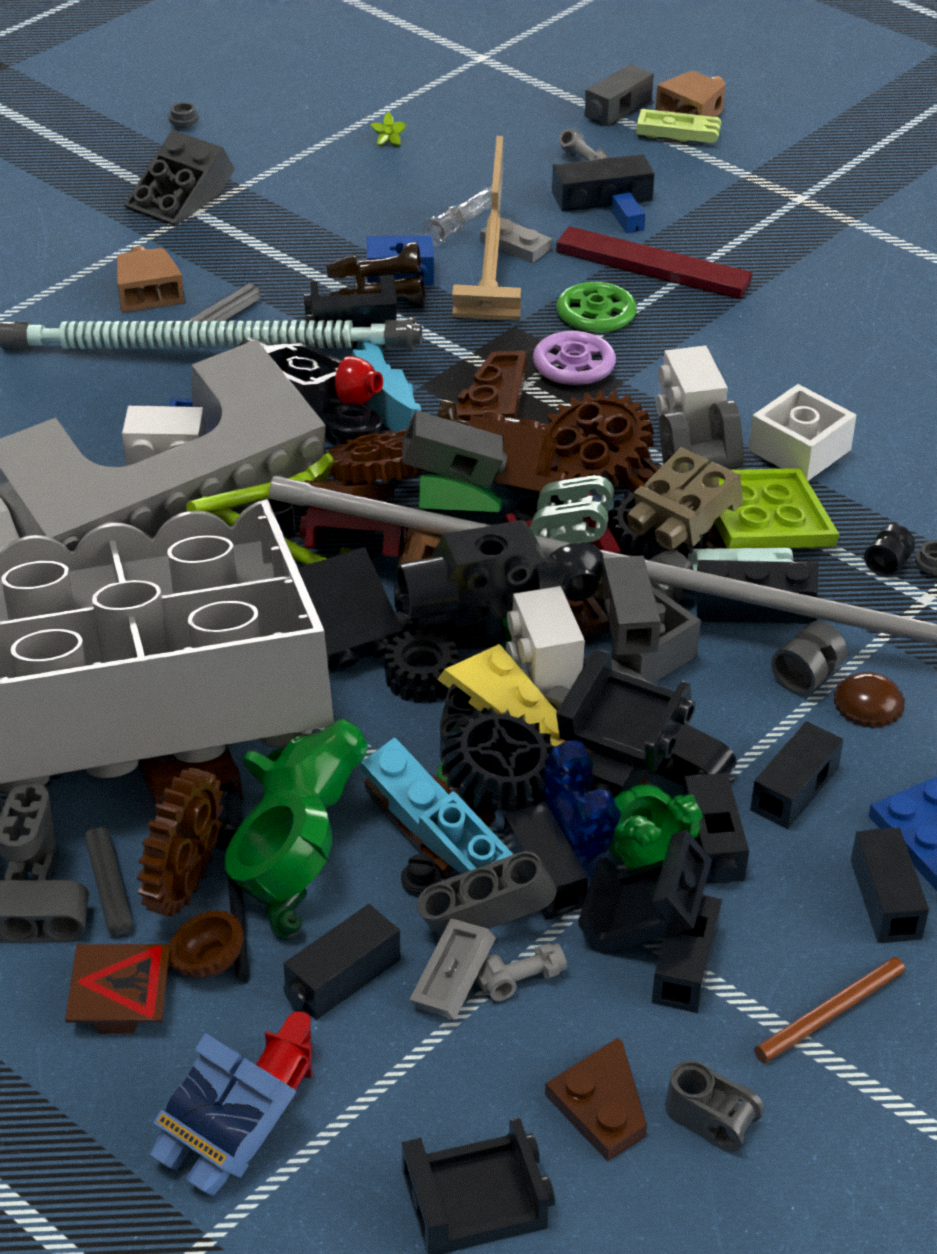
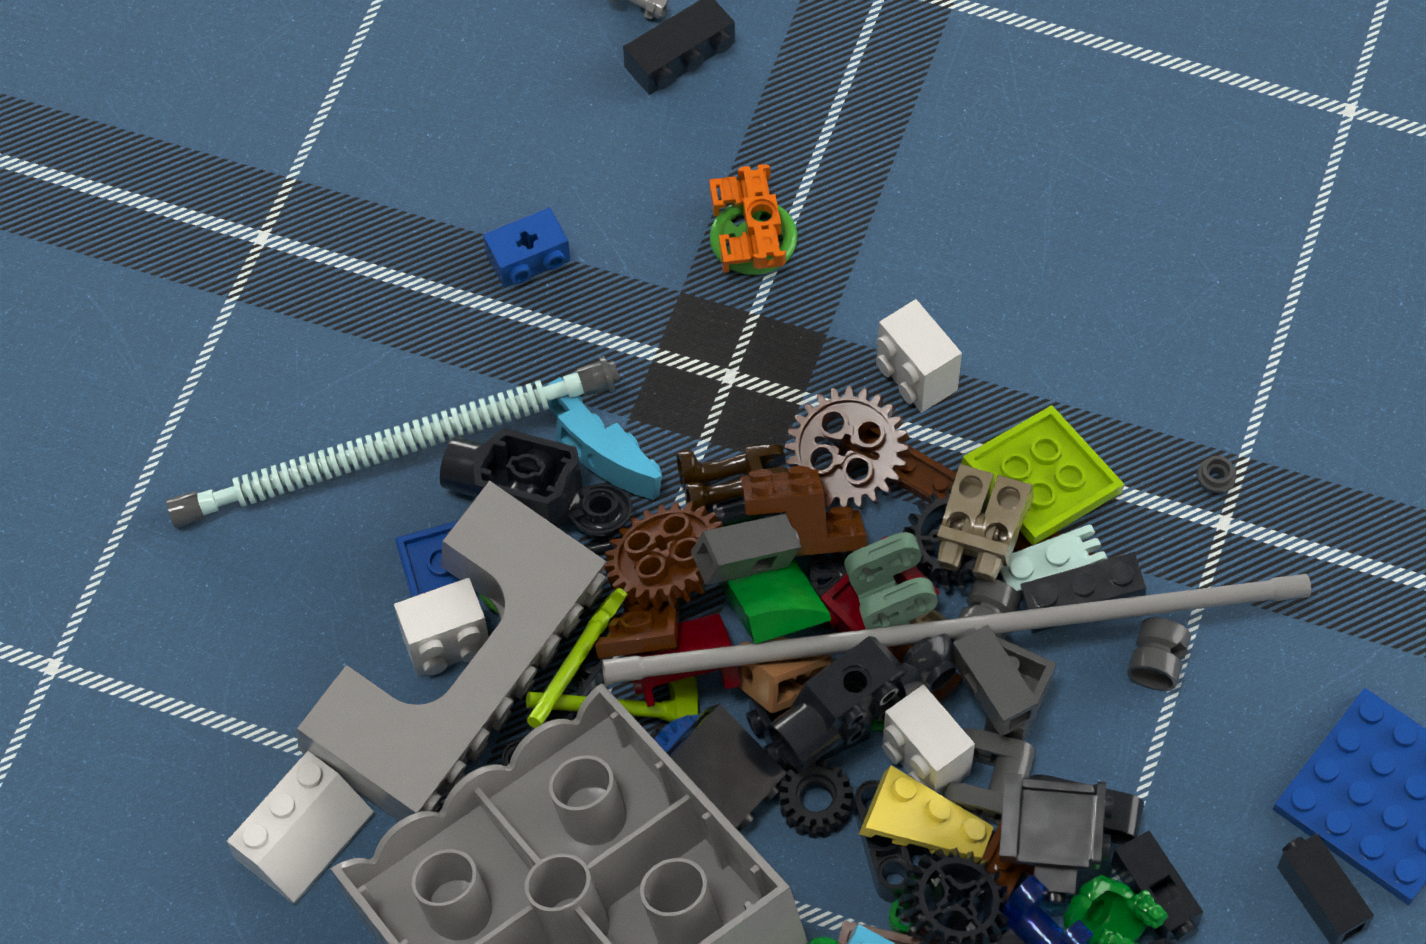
camera: 20 degrees left, 20 degrees up
(148, 279) = (277, 373): medium nougat torso -> none
(181, 178) = (227, 208): dark grey slope -> none
(183, 115) = (169, 90): dark grey plate -> none
(229, 305) = (376, 389): dark grey axle -> none
(357, 380) = (590, 466): red brick -> none
(359, 308) = (561, 354): black panel -> none
(388, 130) = (409, 37): lime plant -> none
(405, 263) = (493, 295): dark brown piece -> none
(453, 219) = (549, 159): clear pin -> none
(488, 299) = (644, 275): tan piece -> none
(496, 386) = (712, 406): reddish brown wing -> none
(520, 241) = (625, 163): light grey plate -> none
(574, 356) = (781, 301): lavender plate -> none
(605, 289) = (761, 237): none -> orange piece
(628, 212) = (723, 79): blue piece -> none
(654, 262) = (781, 146): dark red tile -> none
(726, 434) = (941, 433): dark grey connector -> none
(796, 774) = (1201, 796): black brick -> none
(802, 431) = (1038, 359): white brick -> none
(869, 700) = (1223, 674): reddish brown hat -> none
(889, 550) = (1175, 483): black wheel -> none

